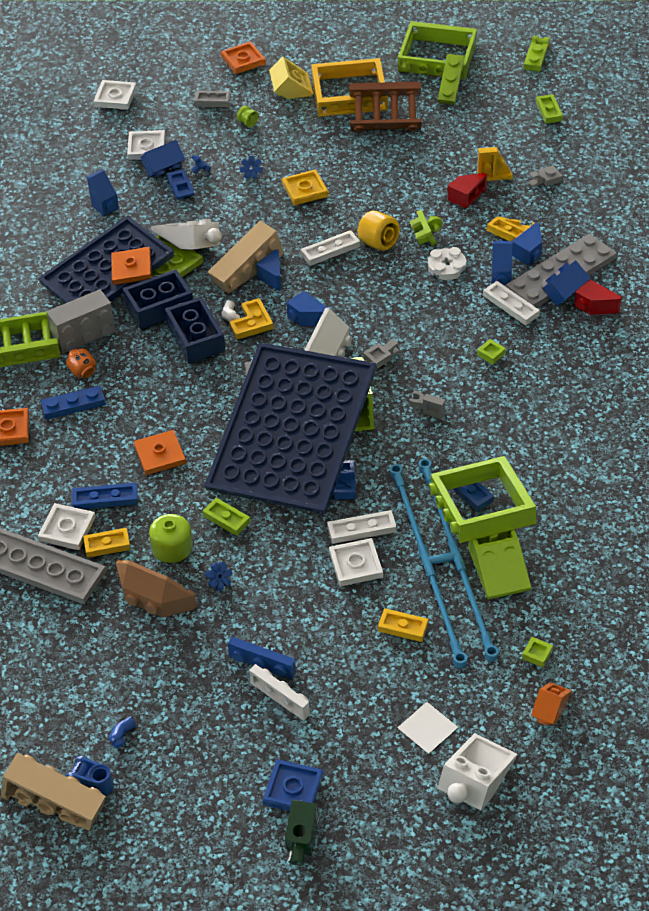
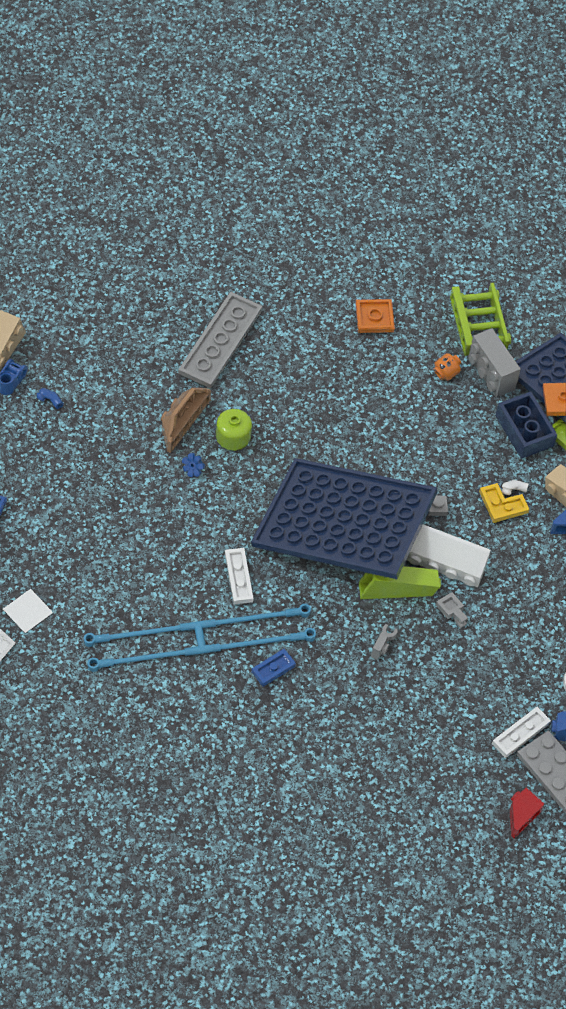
camera: 85 degrees right, 10 degrees up
(66, 526) = (258, 359): white plate -> none
(73, 402) = (404, 364): blue plate -> none
(105, 496) = (290, 386): blue plate -> none
(106, 542) = (238, 387): yellow plate -> none
(159, 452) = (340, 428): orange plate -> none
(195, 330) = (483, 453): dark blue brick -> none
(226, 516) = (259, 474): lime plate -> none
(264, 658) = (104, 492): blue plate -> none
(280, 692) = (70, 503): white plate -> none
(305, 309) = (513, 548): blue slope -> none
(346, 482) = (296, 568): blue slope -> none
(355, 562) = (199, 568): white plate -> none
(403, 625) = (128, 598): yellow plate -> none
(482, 526) = (251, 691): lime window -> none
(491, 351) = (452, 705): lime plate -> none
(500, 564) = (181, 679): lime slope -> none
(537, 652) = (87, 698): lime plate -> none
(550, 703) = (33, 700): orange slope -> none
(566, 282) = (541, 781): blue brick -> none

